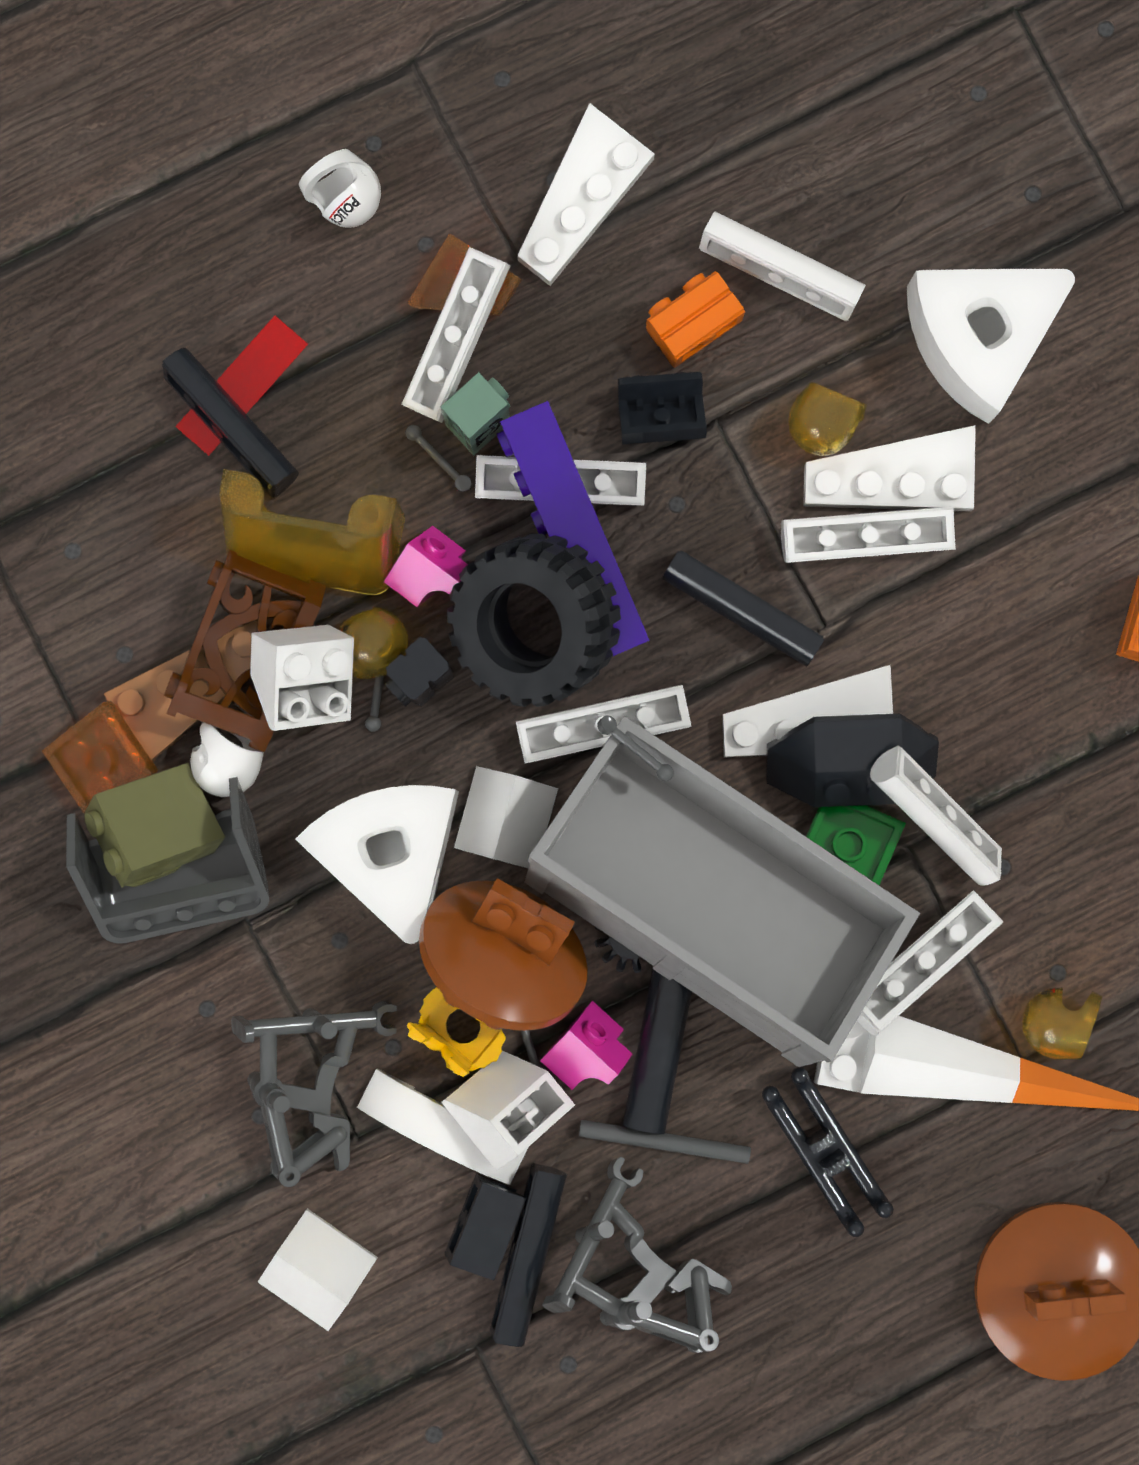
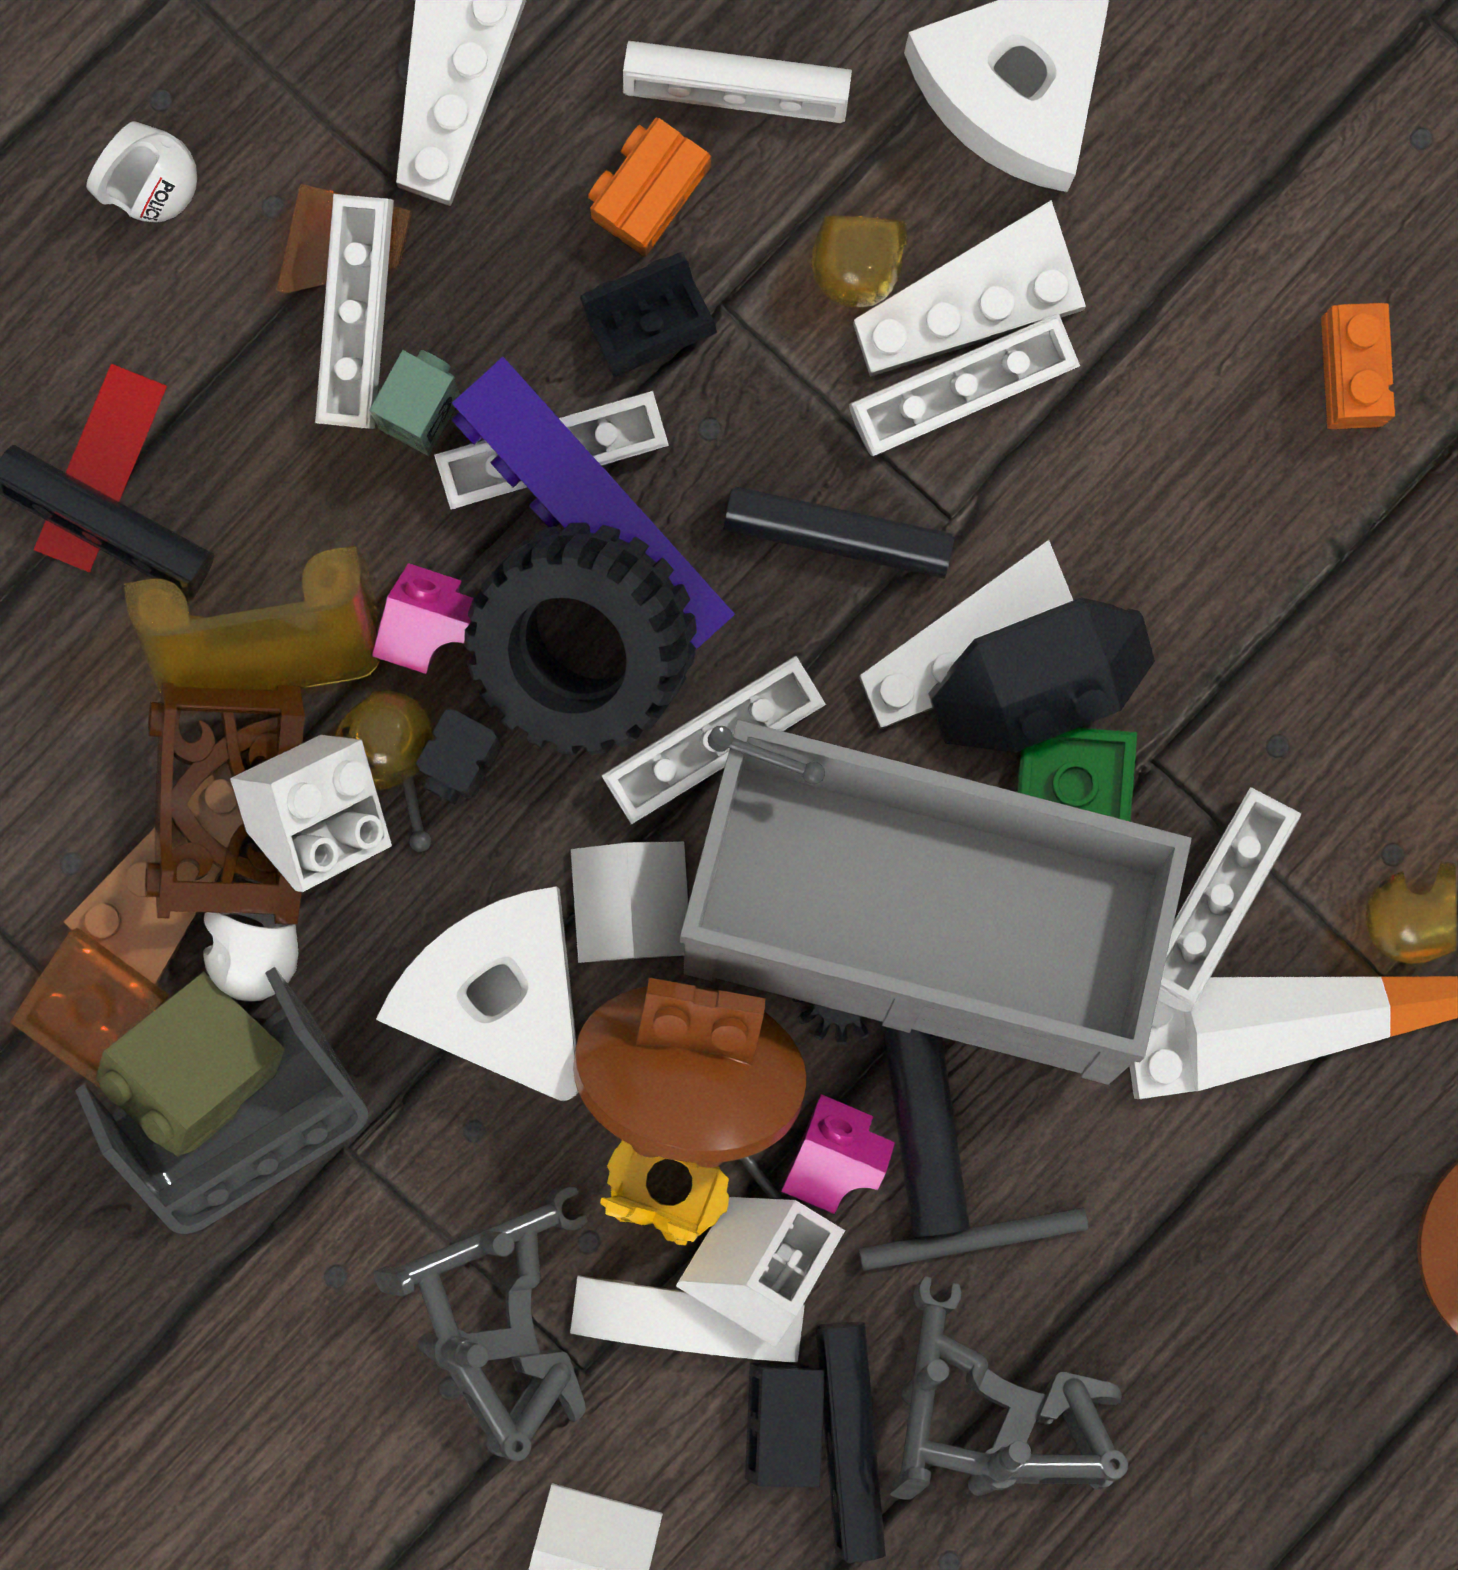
camera: 30 degrees left, 0 degrees up
(462, 482) = (426, 495): dark grey hinge -> none
(827, 1152) = (1180, 1179): black piece -> none
(938, 815) = (1173, 708): white brick -> none

